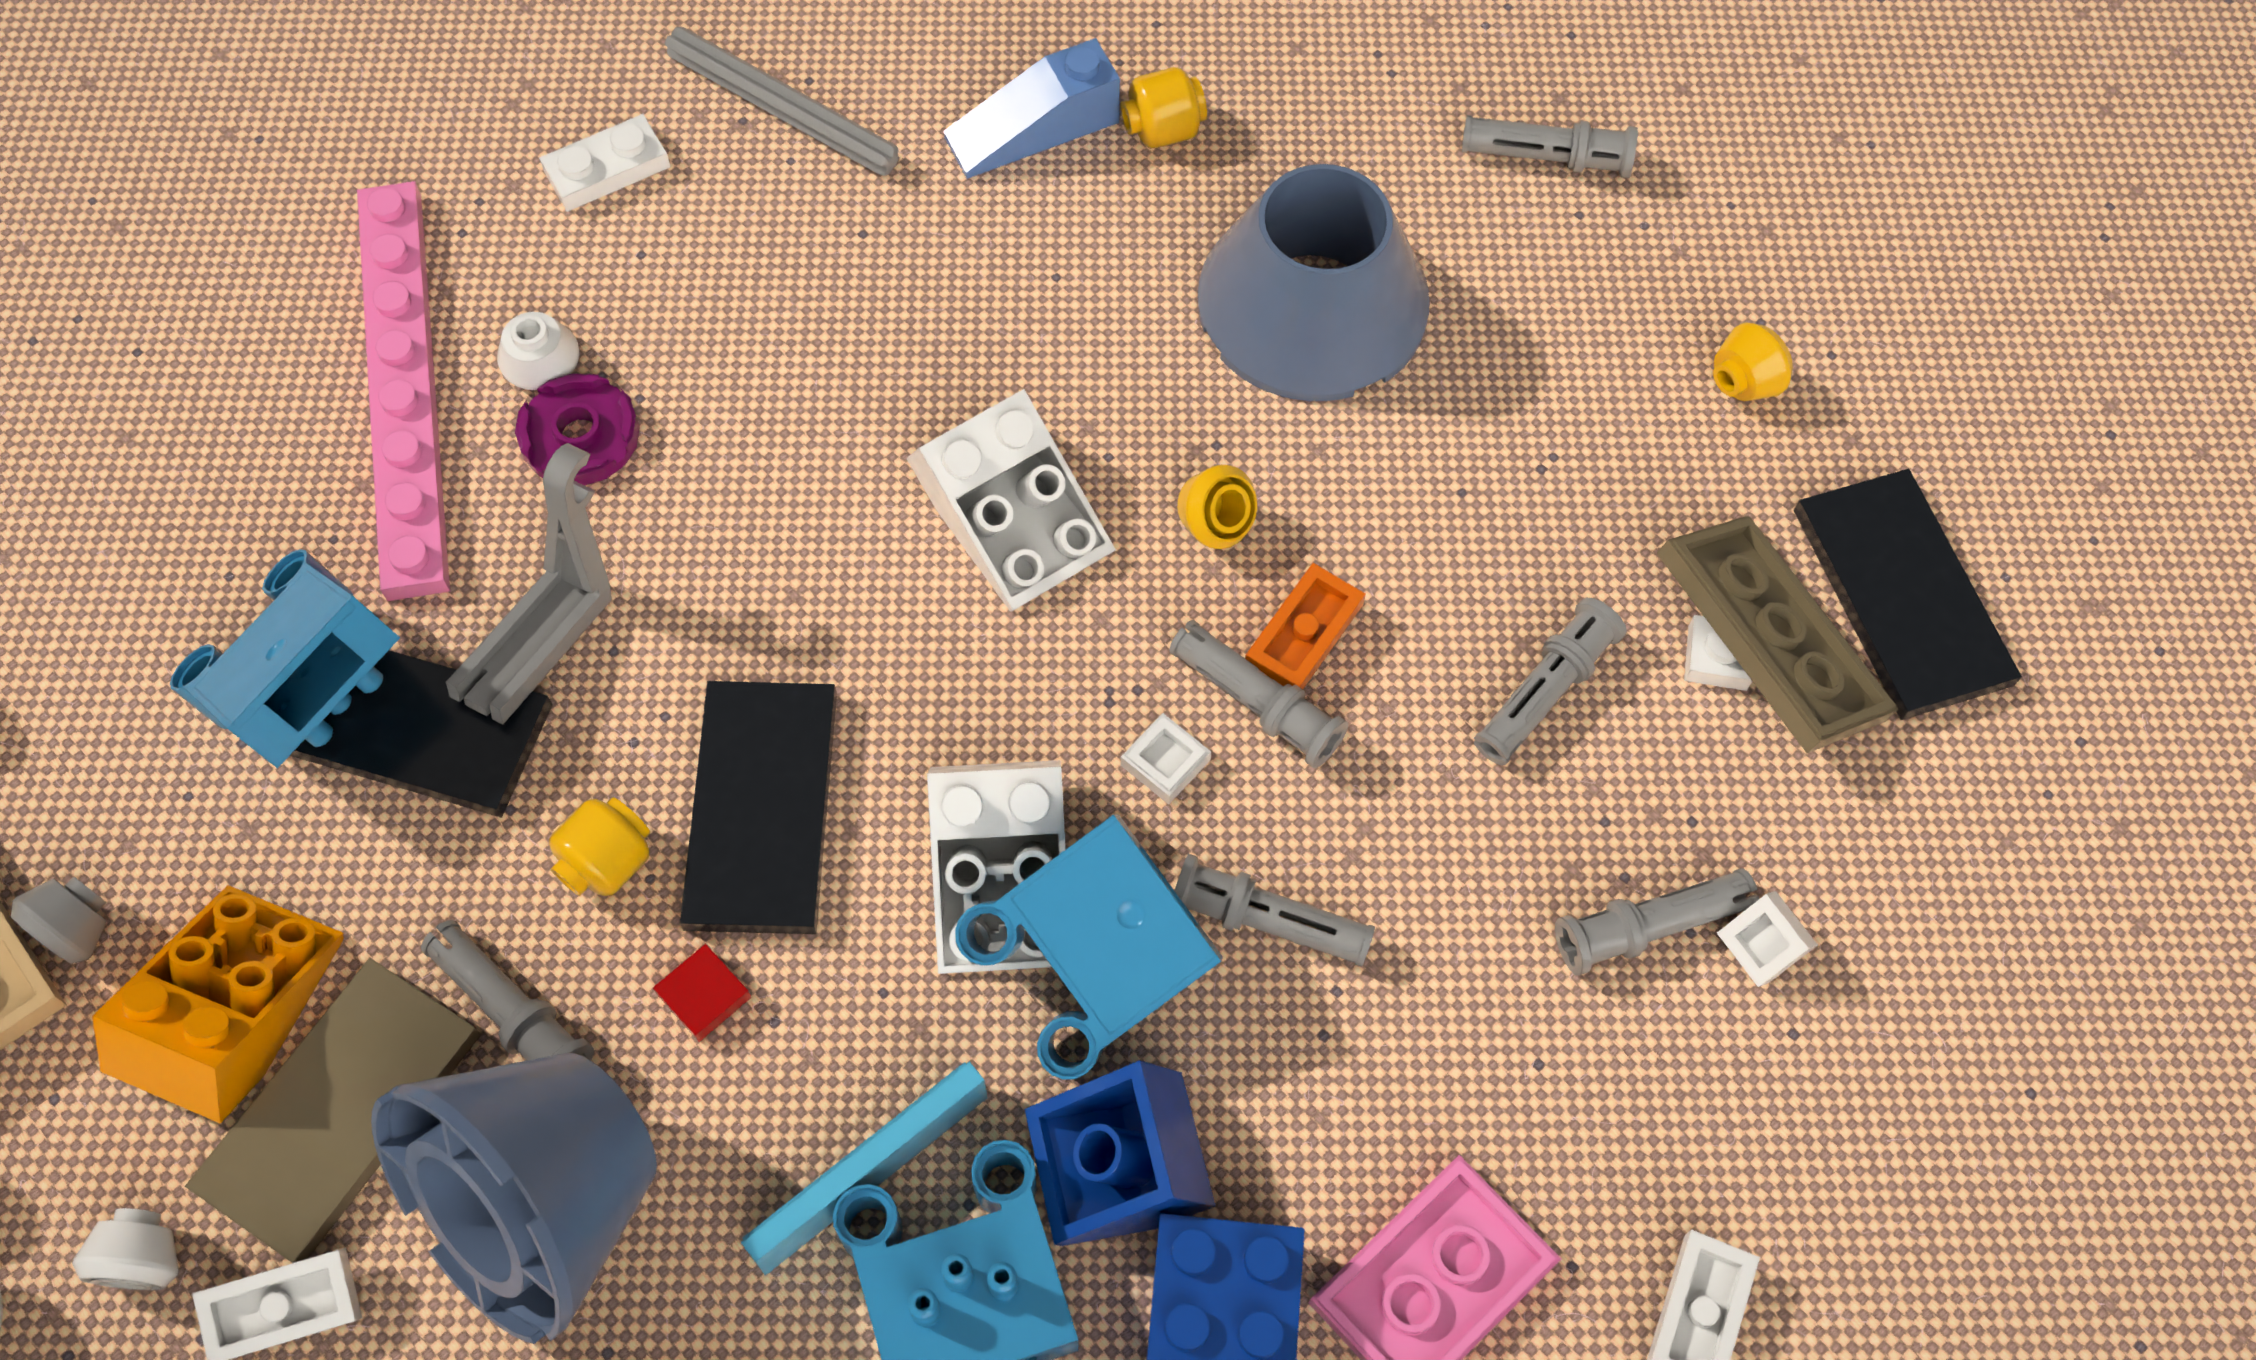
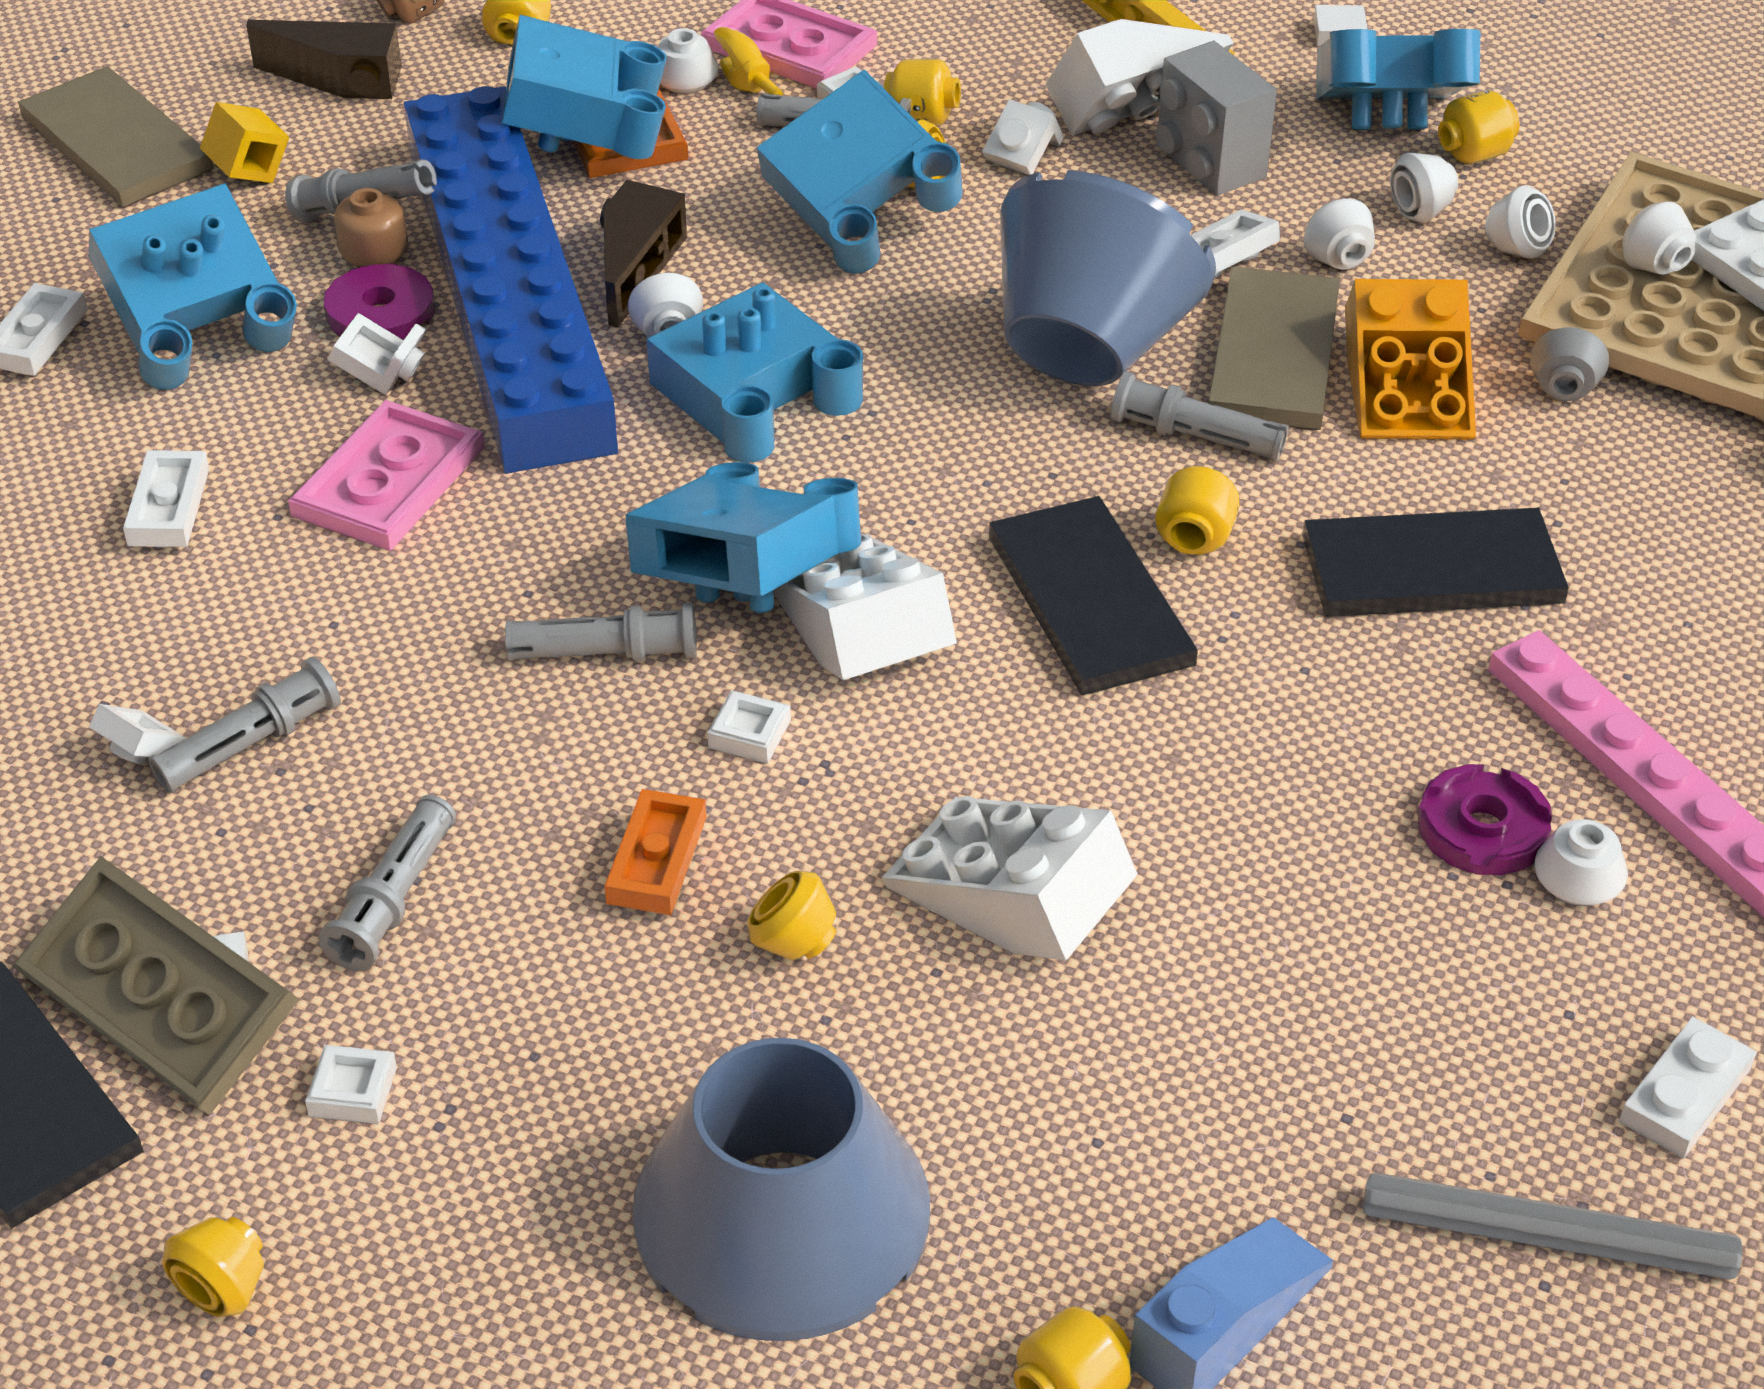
camera: 160 degrees right, 20 degrees down
(289, 662) = (1544, 507): dark azure piece -> none
(551, 612) = (1374, 632): light grey hinge -> none
(702, 992) = (1053, 472): red tile -> none
(867, 1164) = (855, 404): medium azure tile -> none
(1118, 1154) = (652, 443): blue slope -> none
(1280, 707) = (636, 769): light grey pin -> none
(1618, 505) = (351, 1084): none -> white tile

